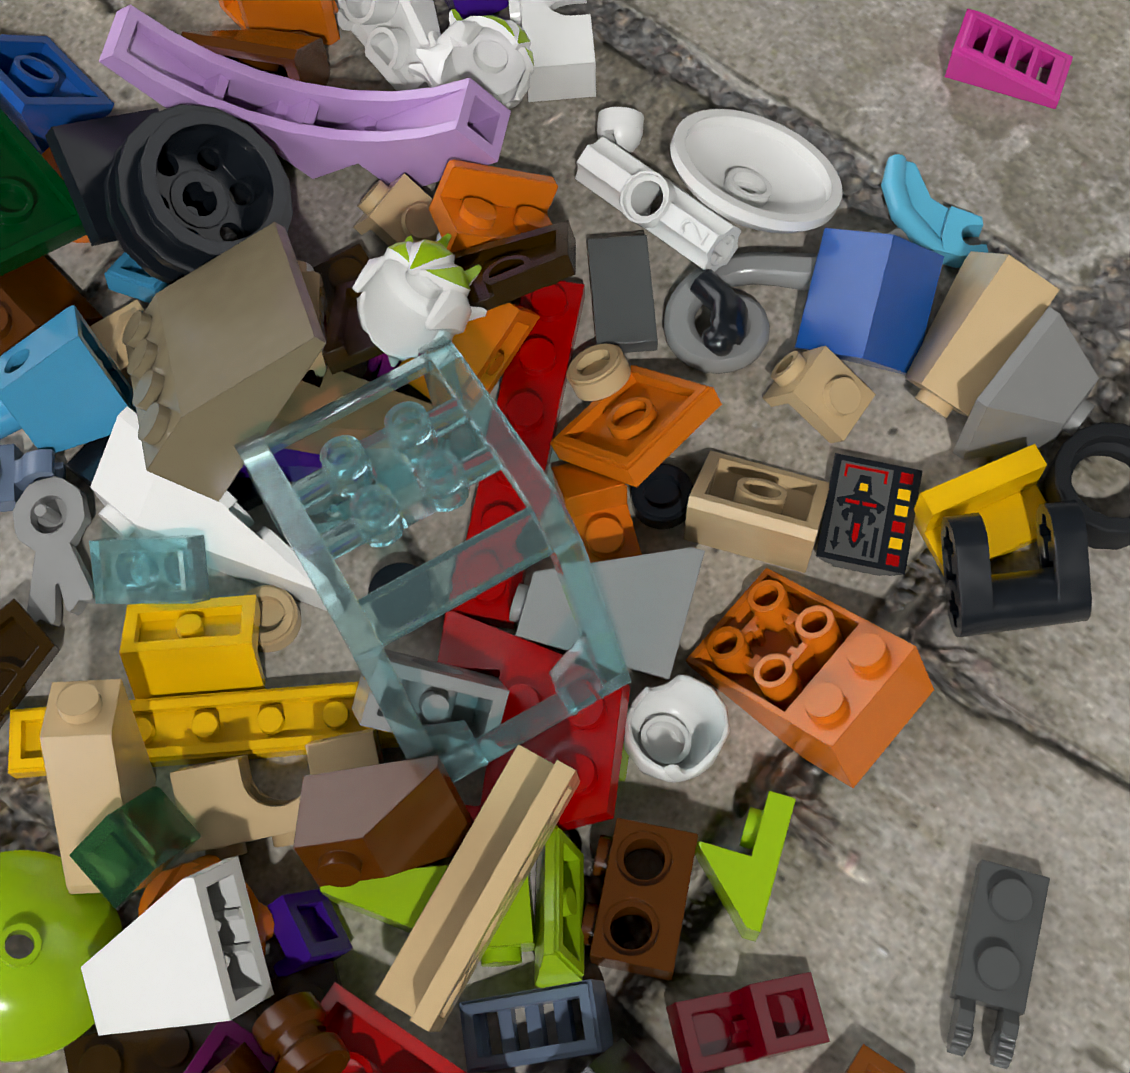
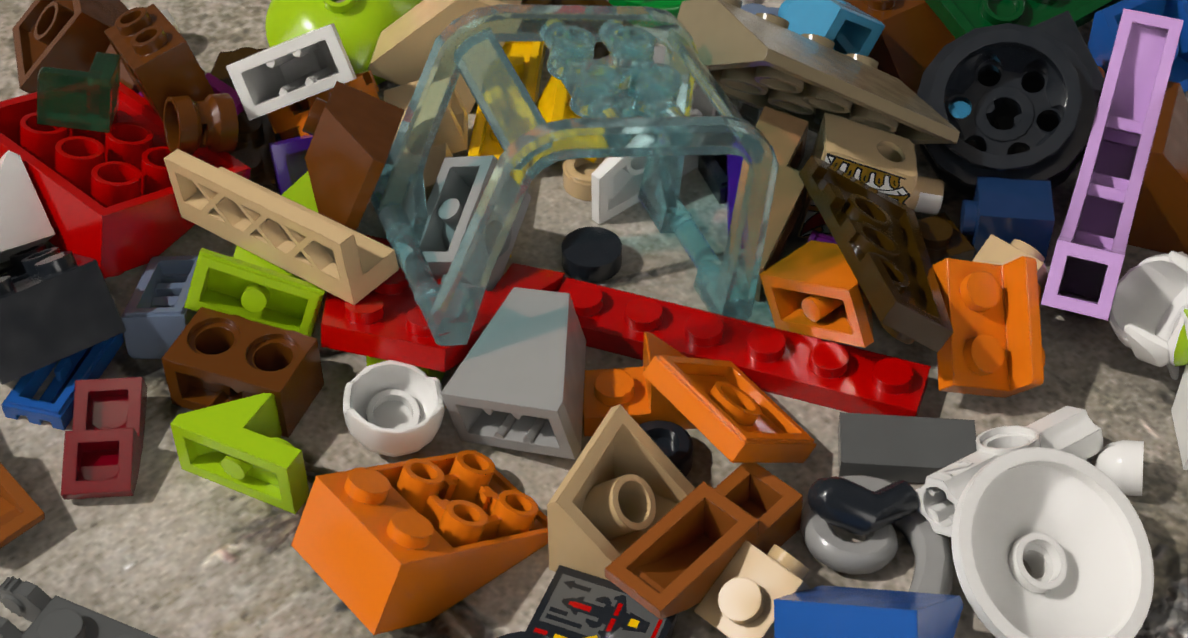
camera: 95 degrees right, 25 degrees down
(134, 845) = (390, 45): clear green panel -> none
(319, 210) = (1010, 212): none -> dark blue brick
(414, 297) = (841, 171): white hair -> none
(598, 372) = (806, 407): tan tile -> none
(789, 432) = (697, 539): none -> dark orange slope

